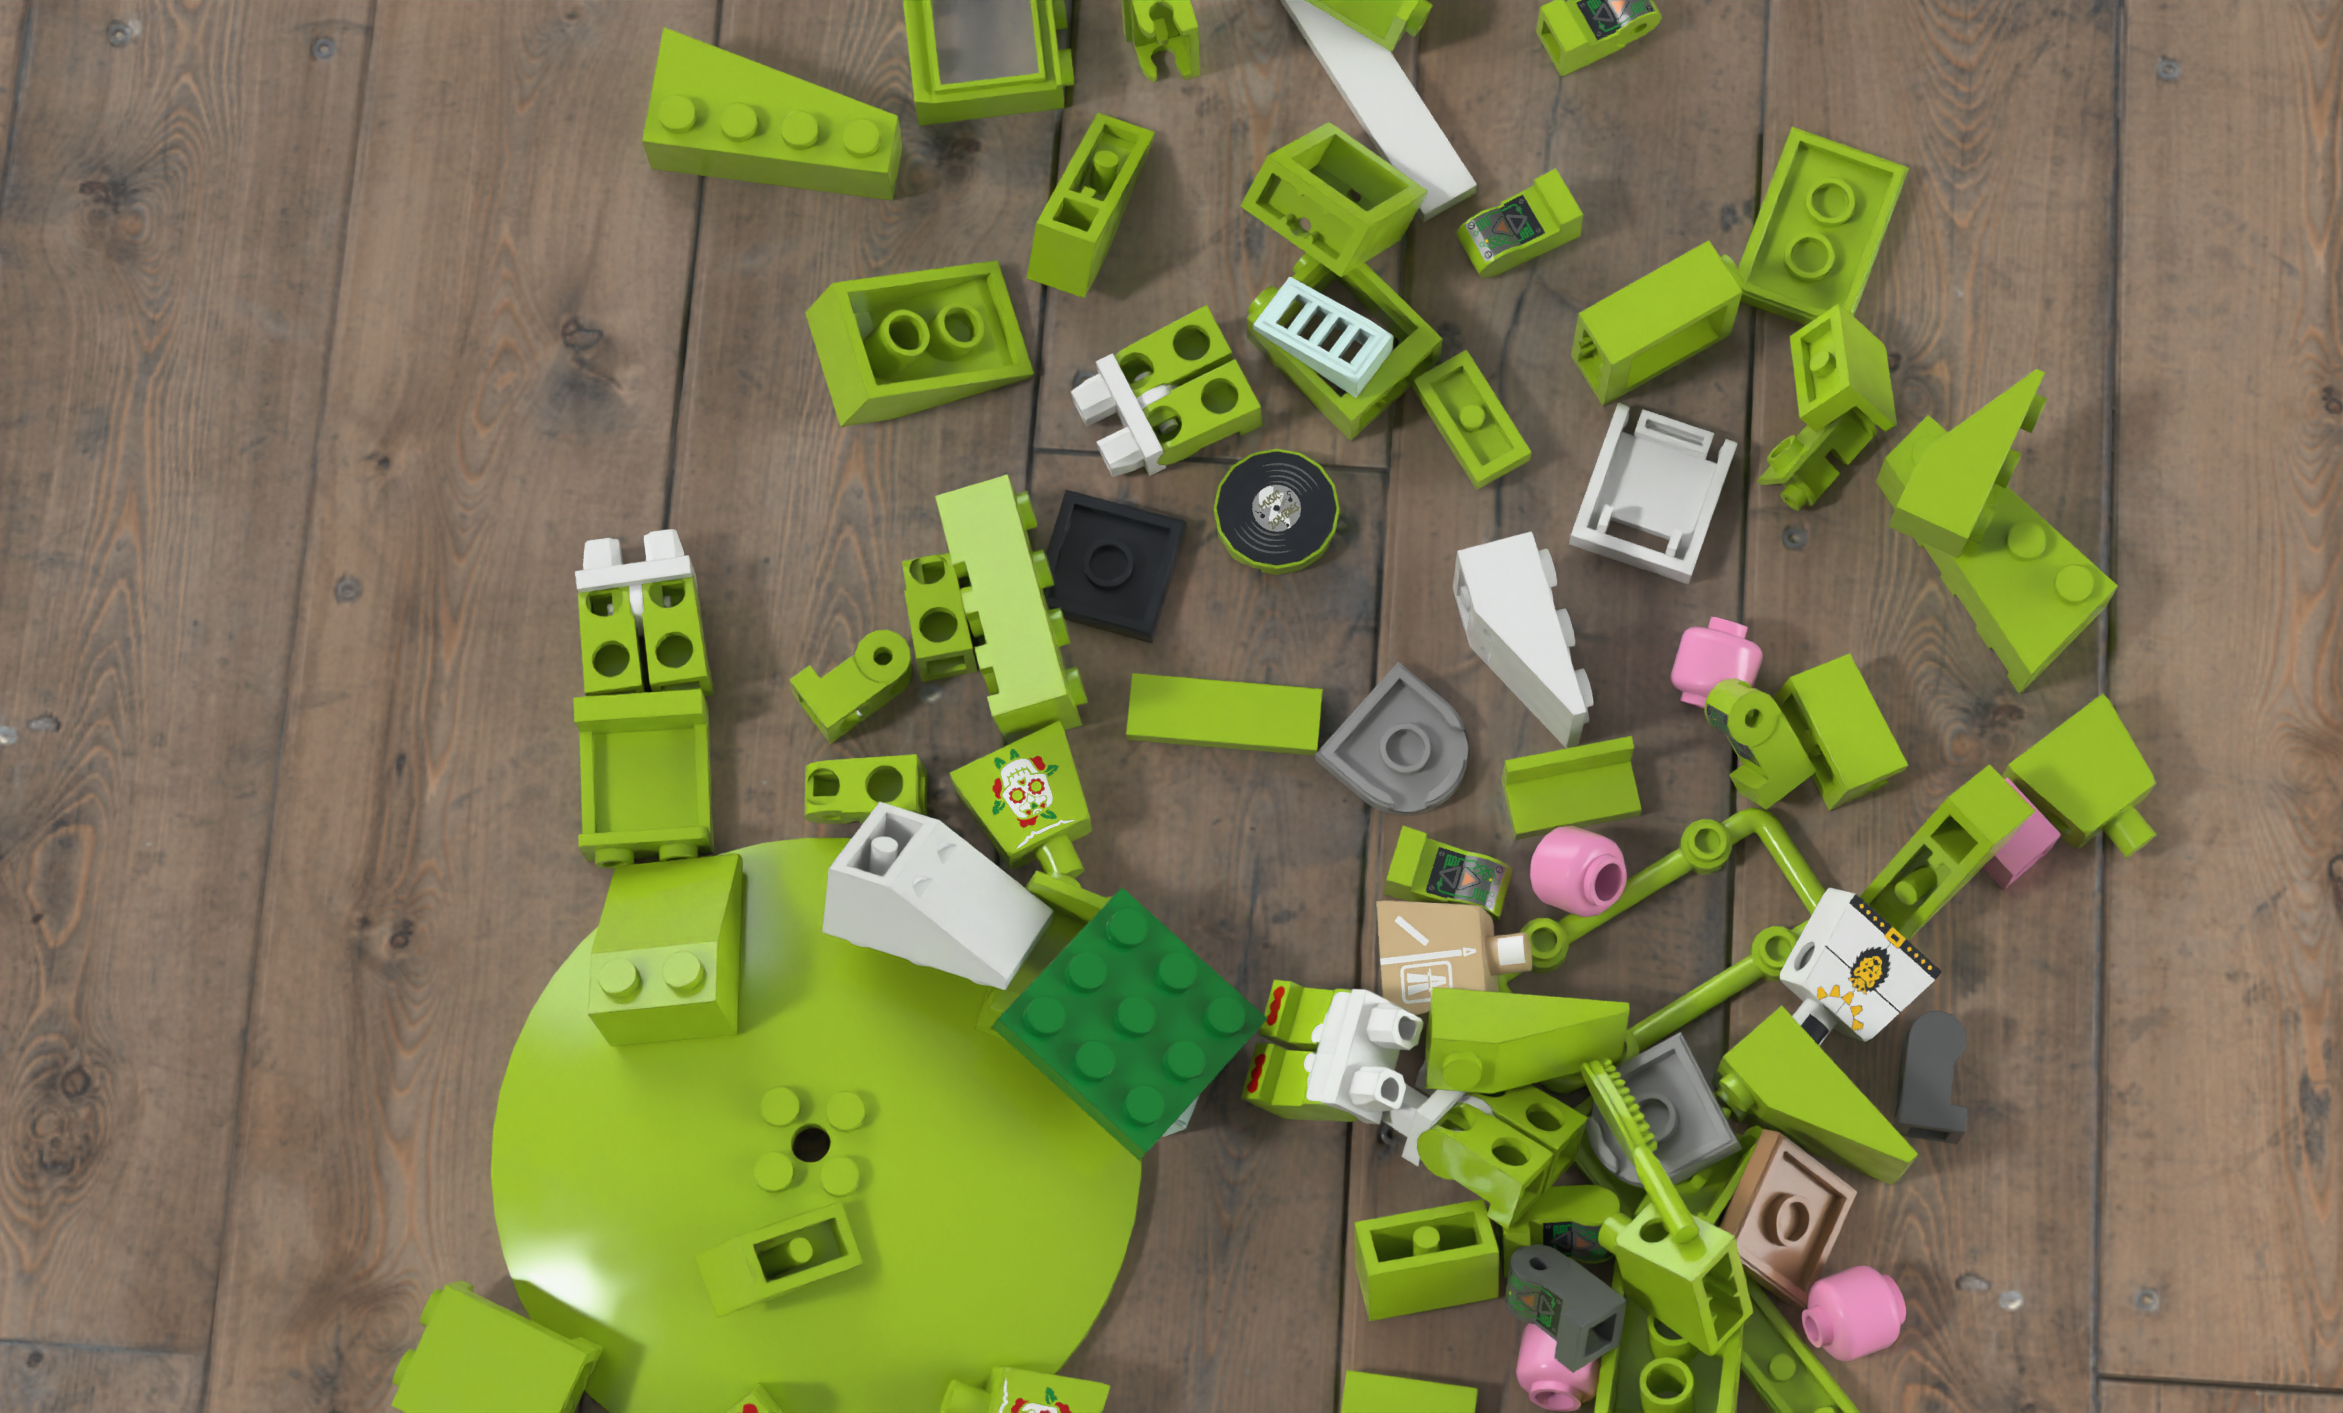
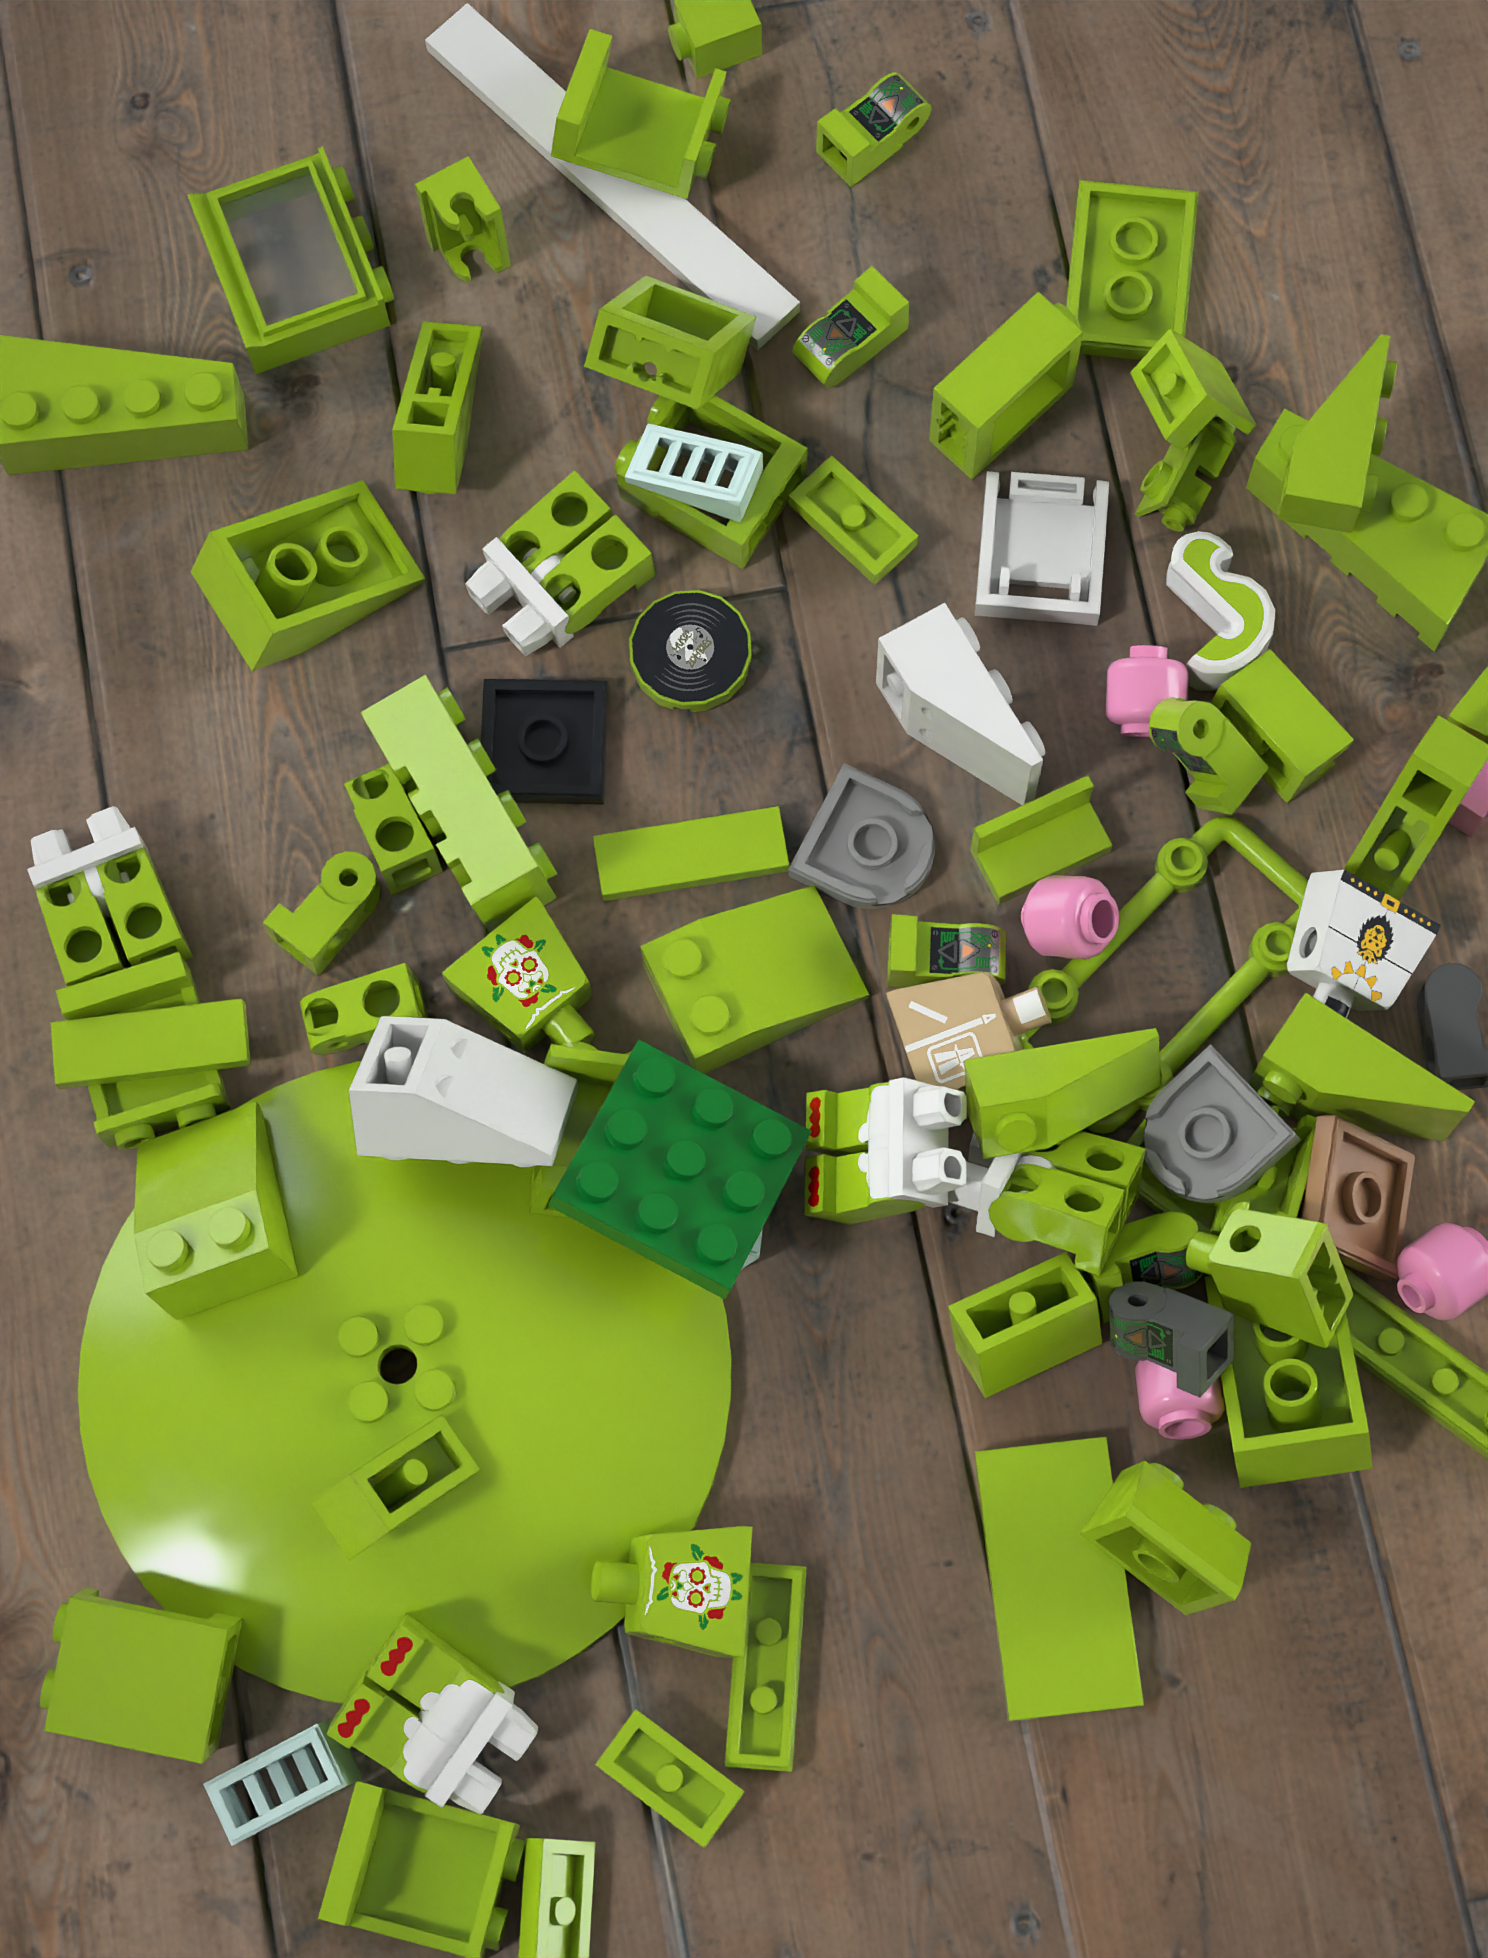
camera: 15 degrees left, 0 degrees up
(652, 771) = (150, 1043): none -> lime tile
(1253, 851) = (751, 976): none -> lime slope
(1632, 1135) = (1194, 1154): lime piece -> none
(1821, 594) = (1226, 602): none -> white animal

